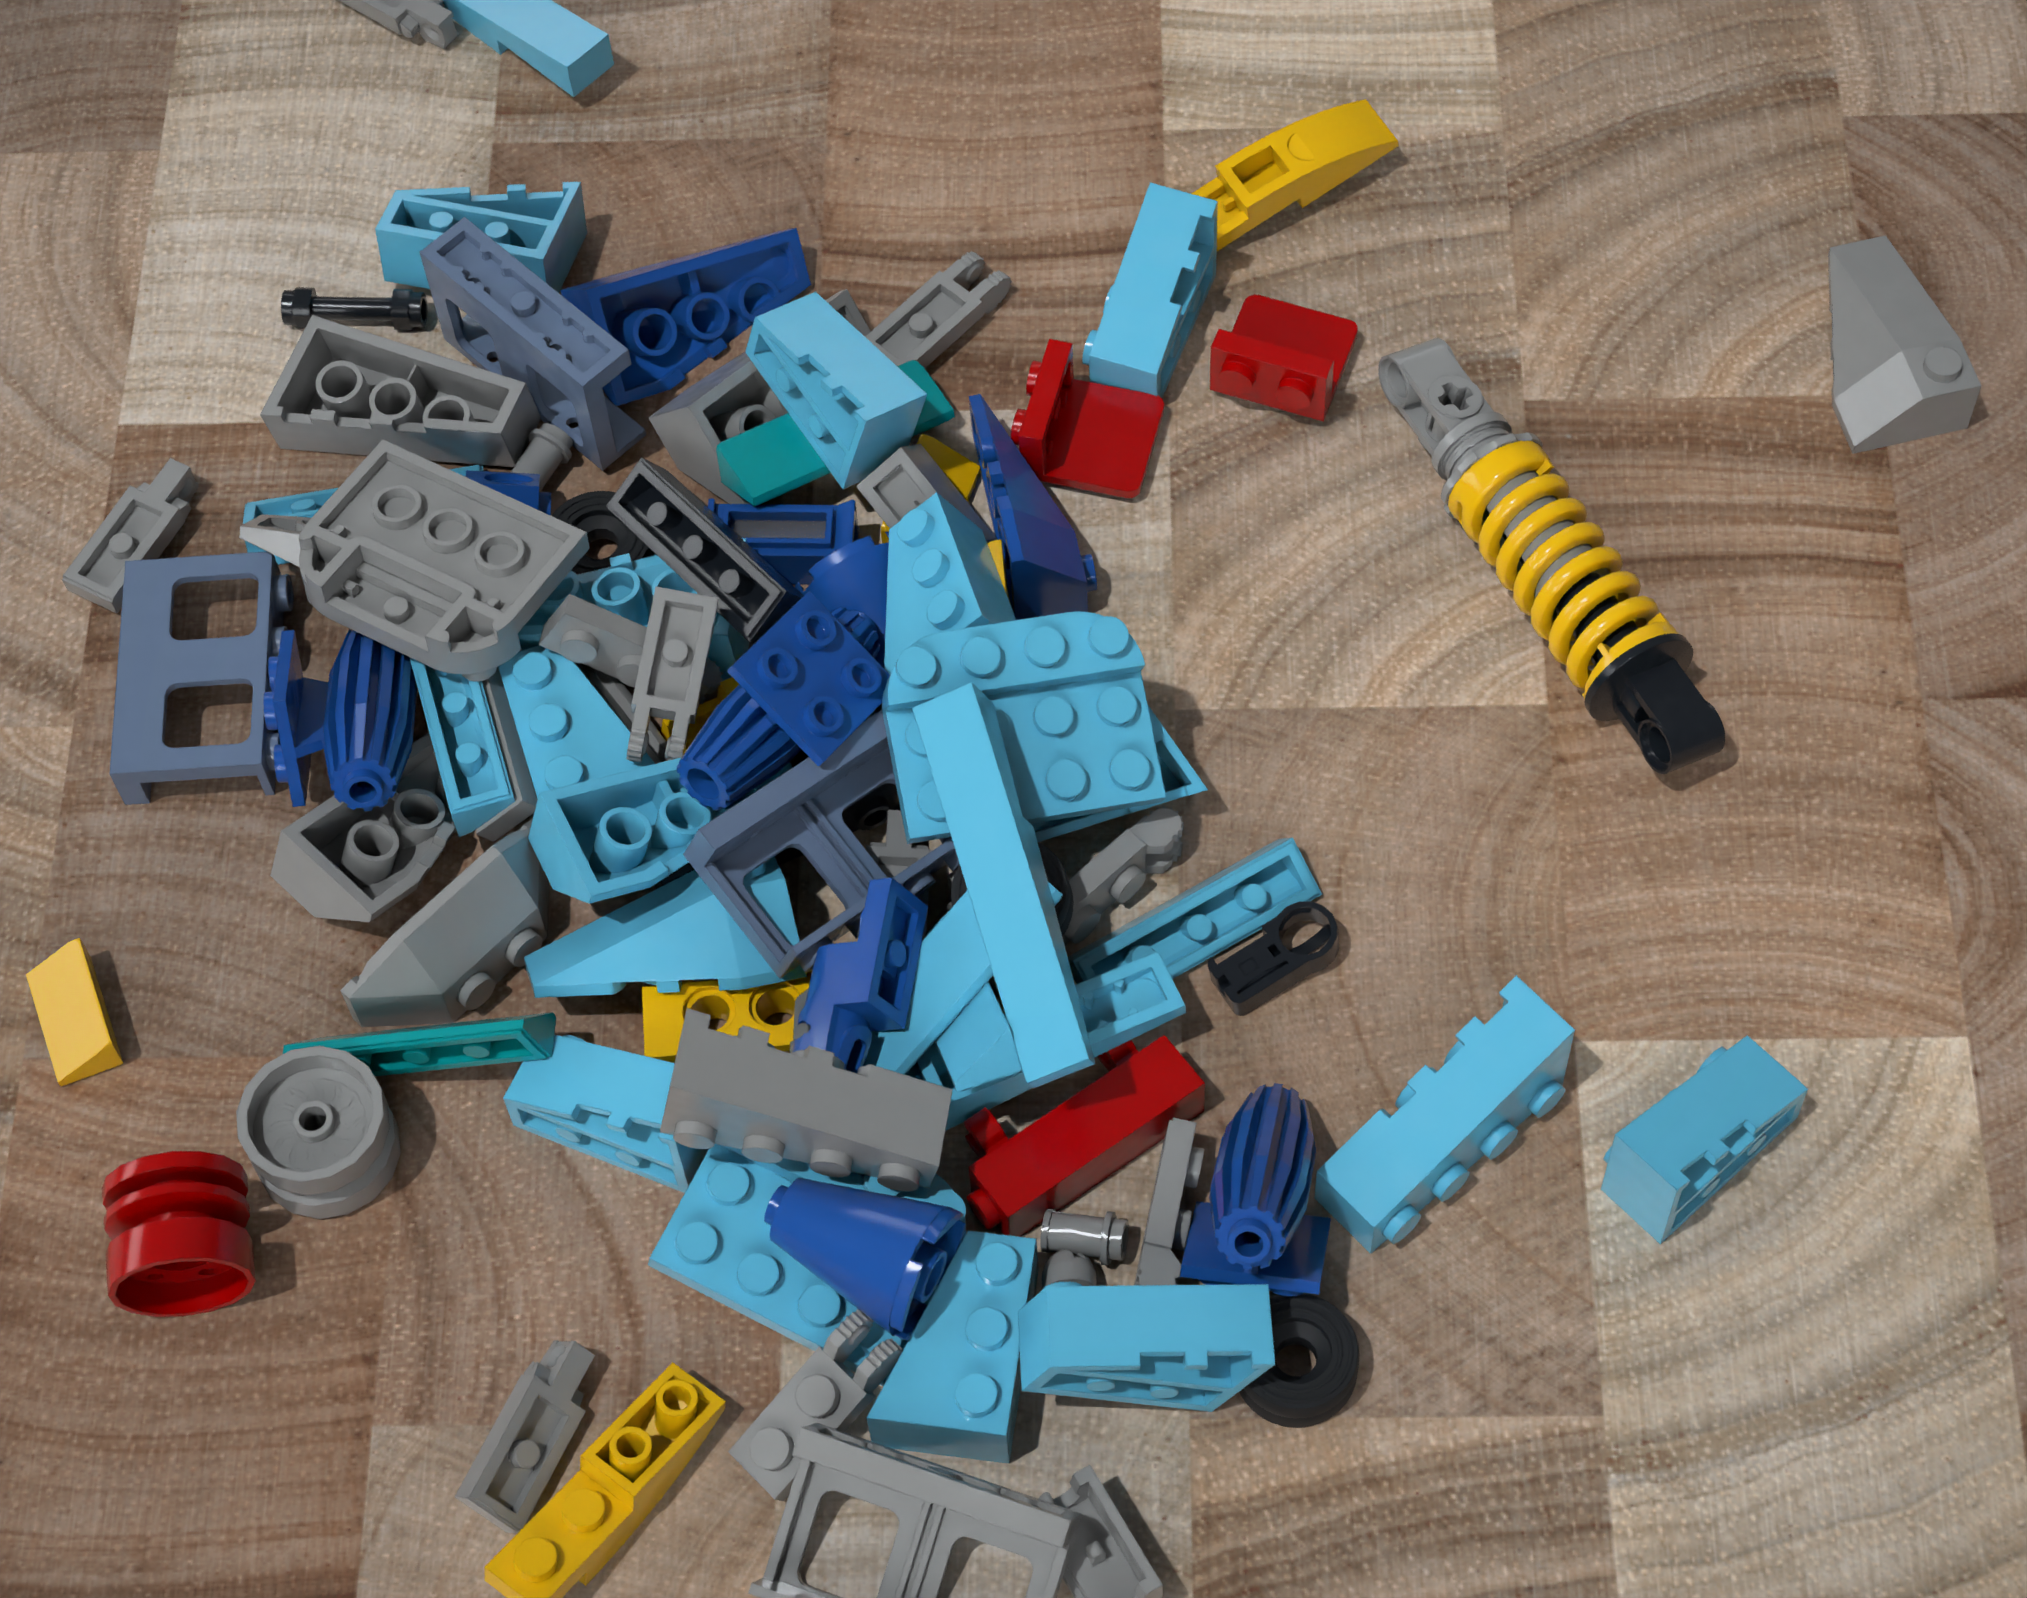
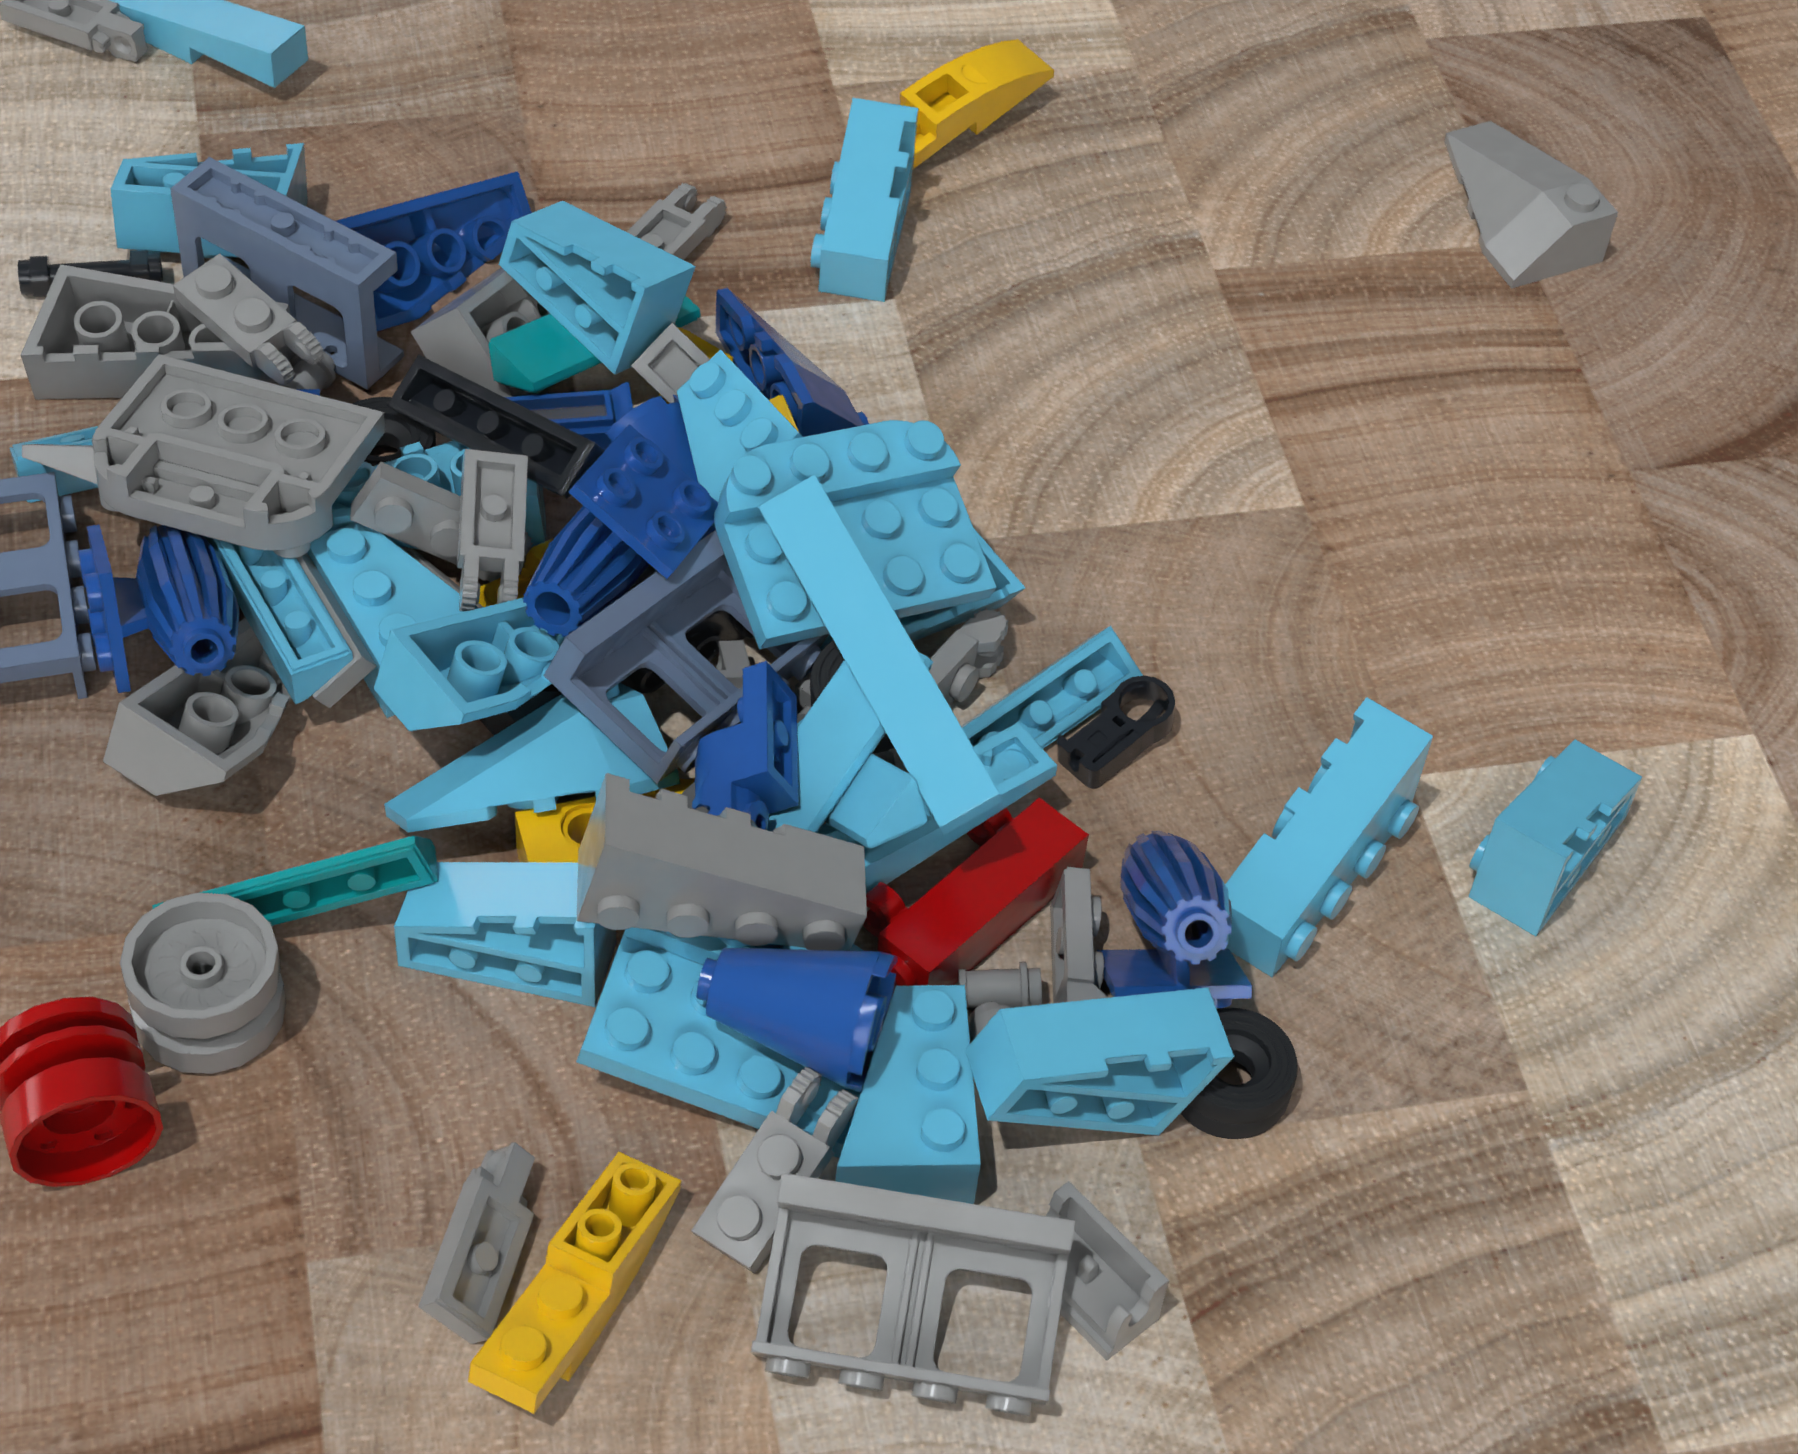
camera: 20 degrees left, 10 degrees down
(457, 942) = (312, 794): light grey wedge -> none
(477, 397) = (246, 318): none -> light grey hinge
(1085, 430) = (829, 319): red bracket -> none
(1282, 356) = (992, 247): red bracket -> none
(1554, 560) = (1288, 379): piece -> none

